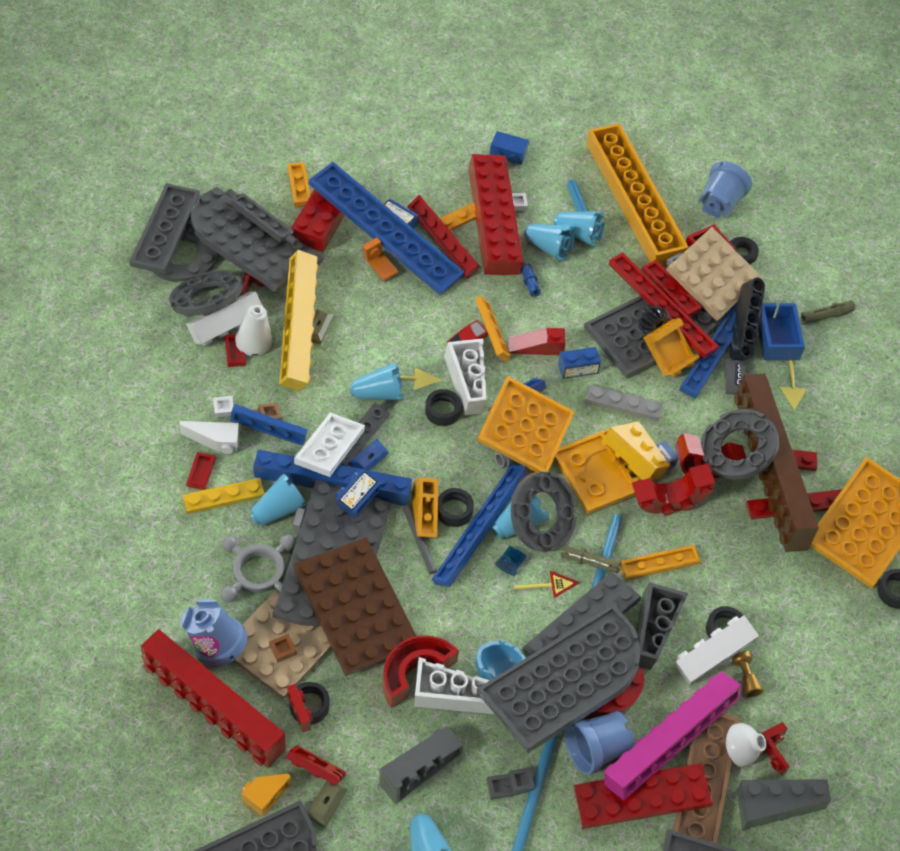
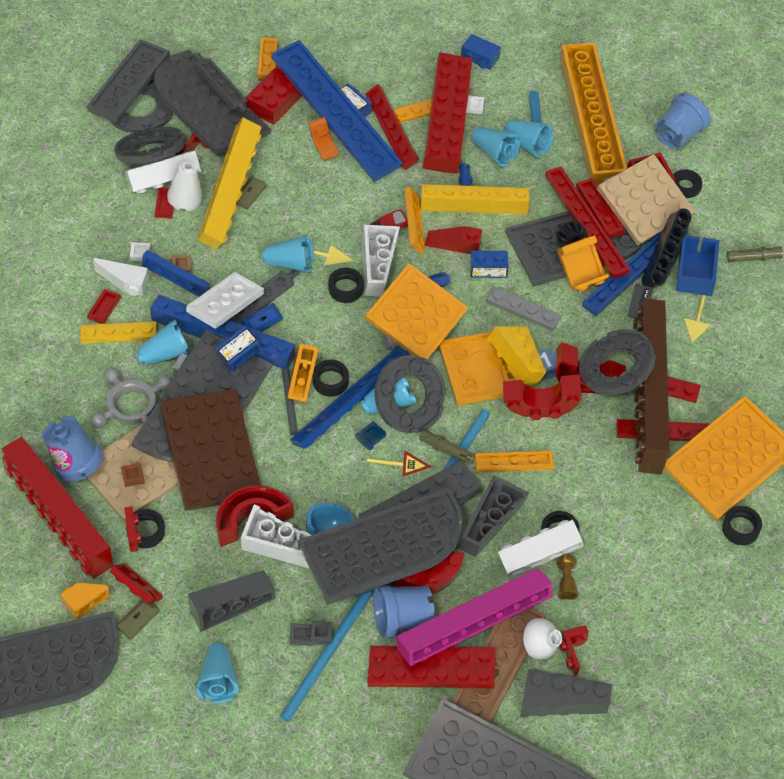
camera: 15 degrees right, 0 degrees up
(546, 298) = (474, 199): none -> yellow brick

